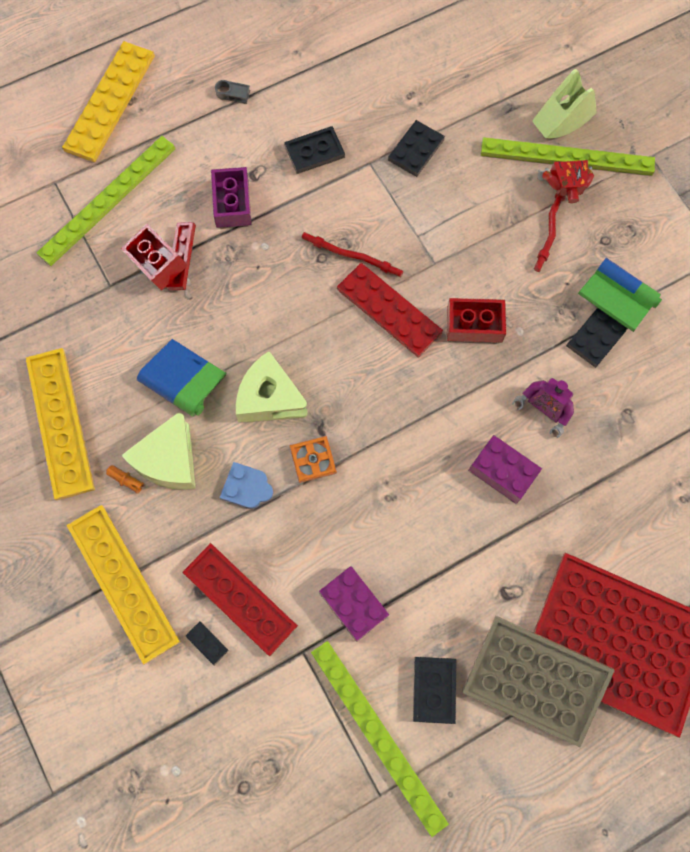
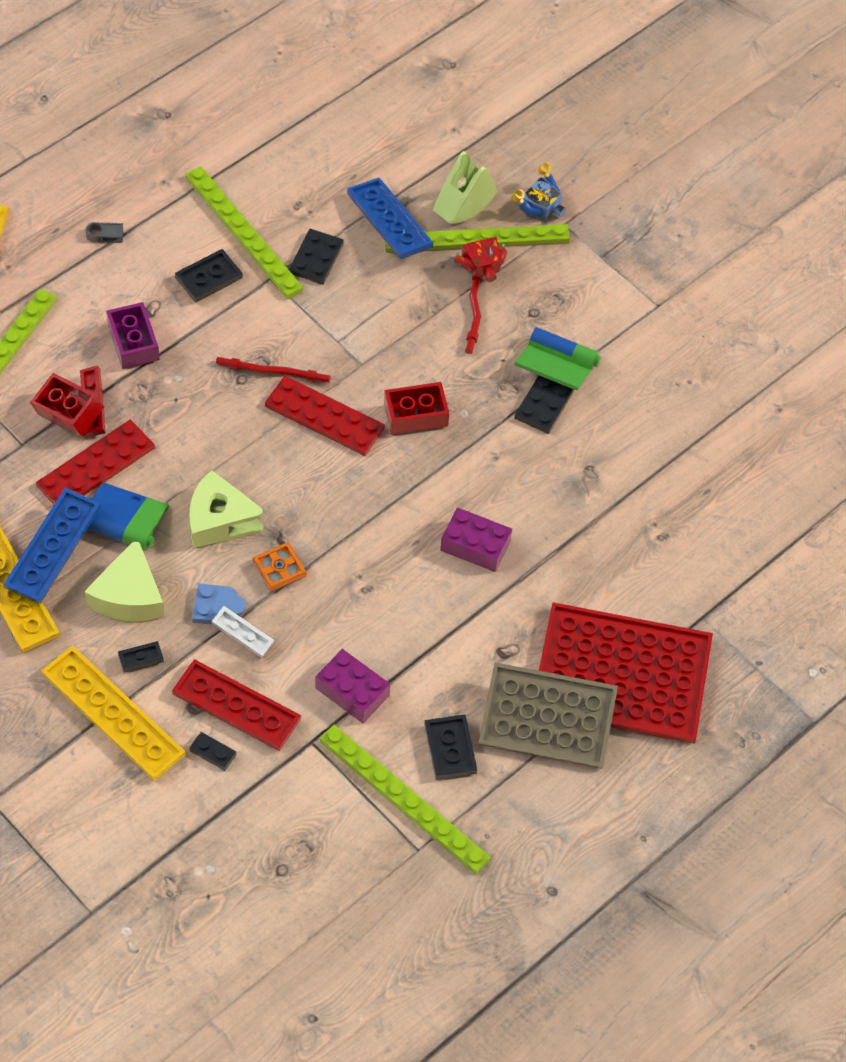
camera: 15 degrees left, 15 degrees down
(105, 399) = (52, 545): none -> blue plate
(124, 479) = (88, 619): orange axle -> none
(162, 528) = (140, 656): none -> black plate
(169, 320) = (97, 462): none -> red plate
(262, 523) = (242, 632): none -> white plate
(356, 114) = (244, 233): none -> lime plate
(491, 123) = (390, 218): none -> blue plate
(551, 399) = (508, 467): magenta torso -> none
(637, 126) = (542, 197): none -> torso

